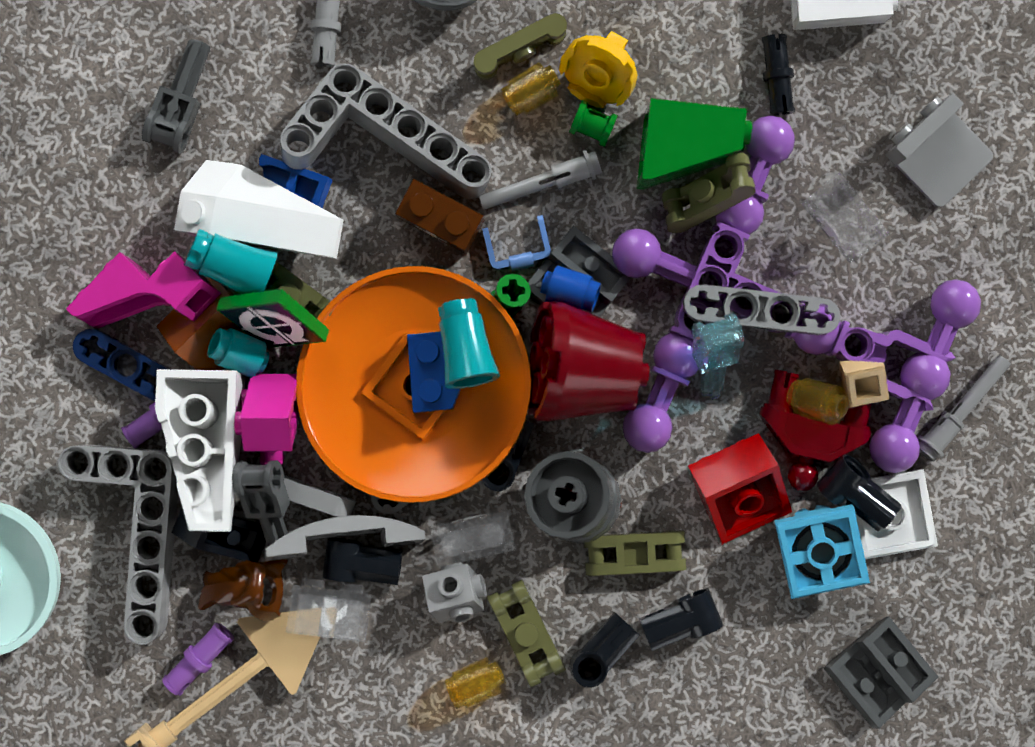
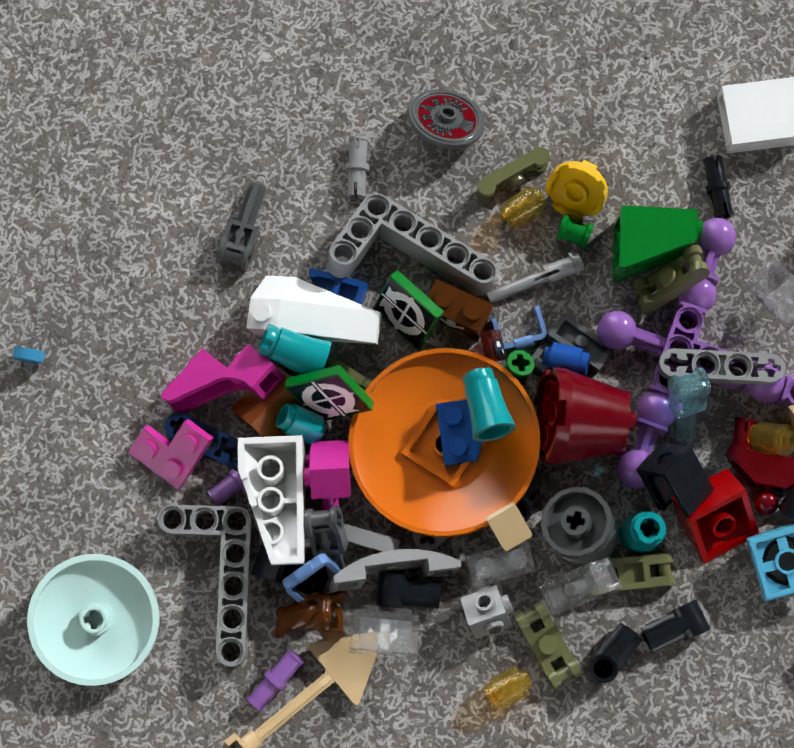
camera: 10 degrees left, 10 degrees down
(84, 385) = (174, 459): none -> dark pink plate
(216, 550) = (306, 571): none -> medium blue piece
(377, 215) = (408, 309): none -> tile
(481, 265) = (493, 345): none -> clear red tile
(485, 496) = (509, 526): none -> tan slope
(568, 571) = (580, 586): none -> clear brick
(647, 490) = (633, 538): none -> teal plant
(694, 442) = (675, 472): none -> black piece

